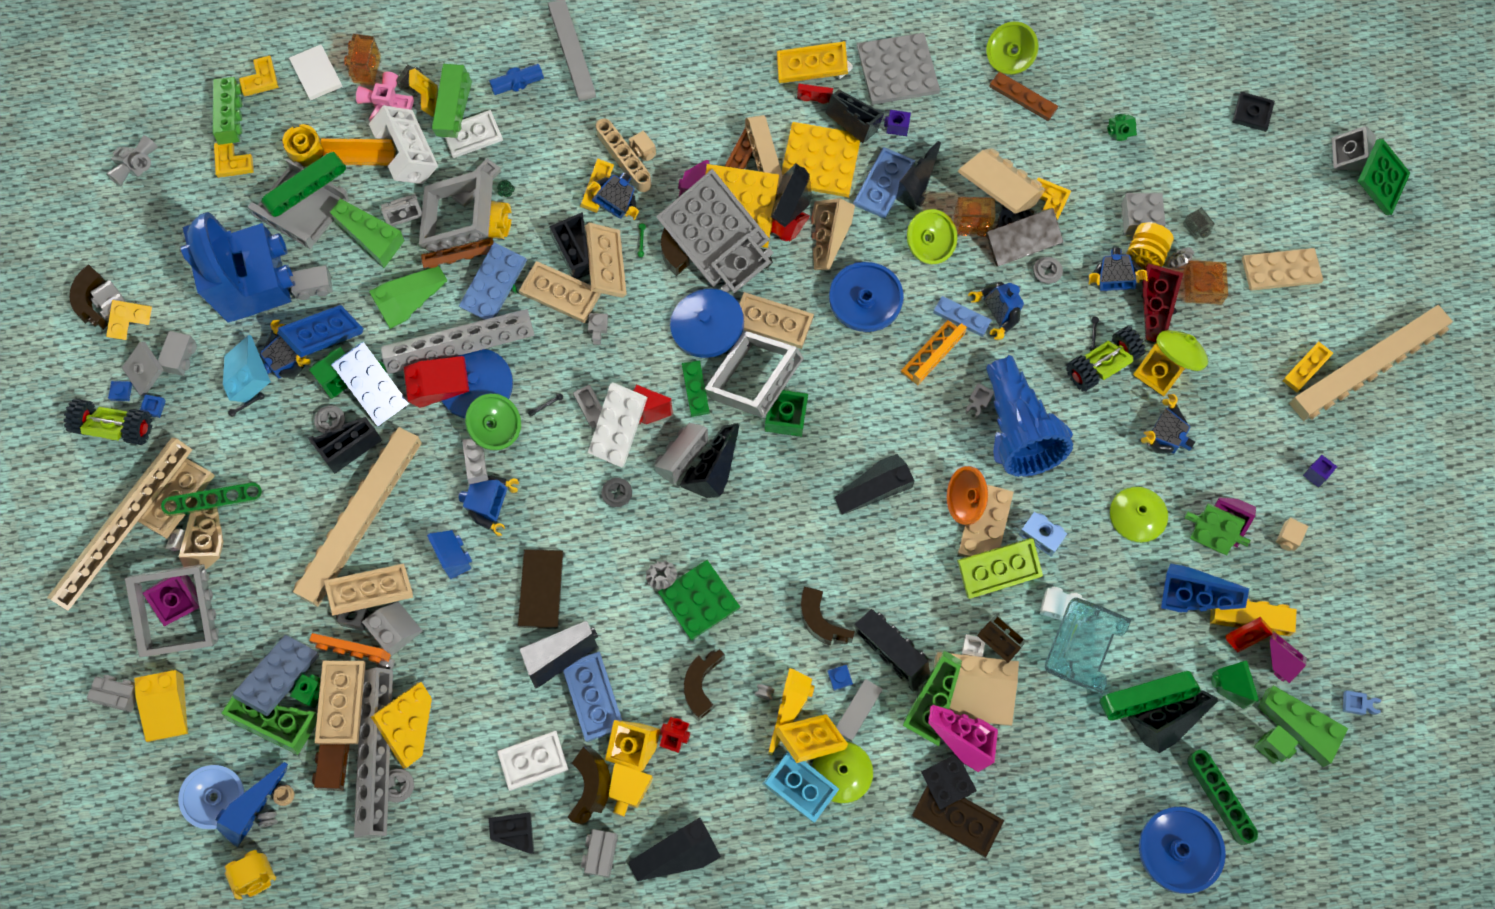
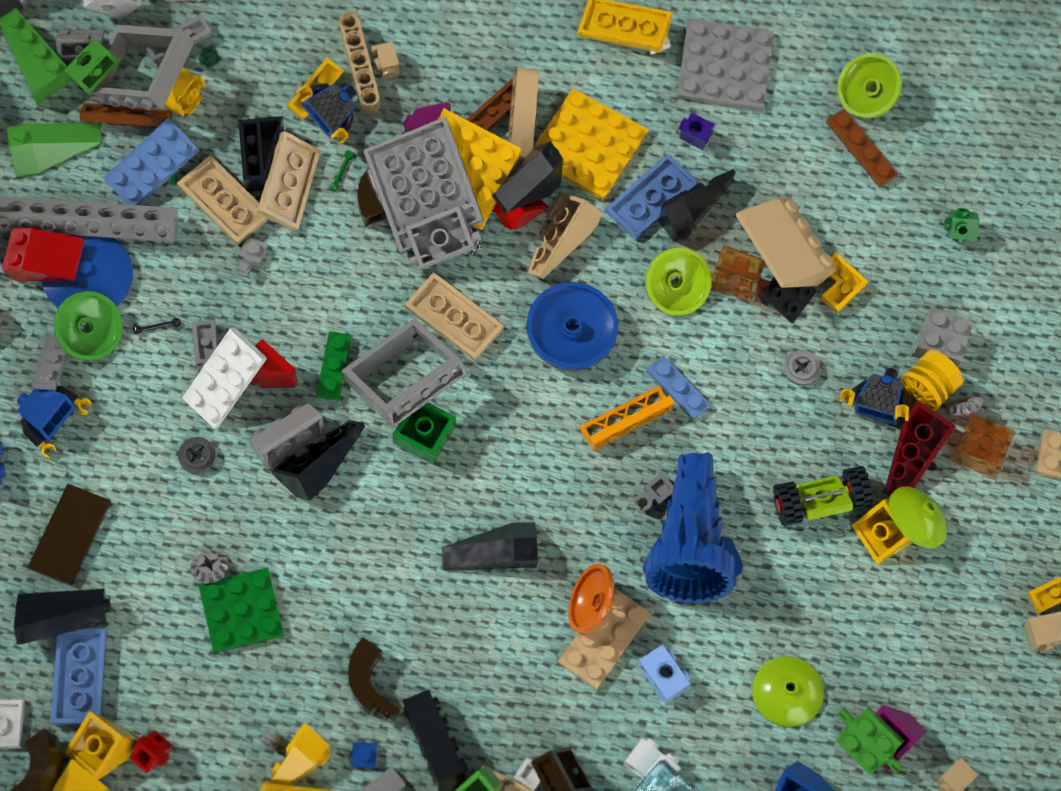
camera: 15 degrees right, 0 degrees up
(418, 222) = (91, 66): none -> bright green brick
(695, 697) = (196, 701): dark brown arch -> none
(707, 323) = (376, 294): blue dish -> none
(814, 93) = (607, 60): red plate -> none
(854, 115) = (646, 105): black wedge -> none
(1000, 568) = (597, 696): lime plate -> none
(1003, 303) = (729, 388): torso -> none
(1024, 237) = (788, 318): tile -> none
(1094, 320) = (833, 446): black hinge -> none
(1169, 430) = (862, 606): torso -> none
(1199, 224) = (1005, 373): clear smoke brick -> none
(1320, 471) = (1021, 716): dark purple brick -> none

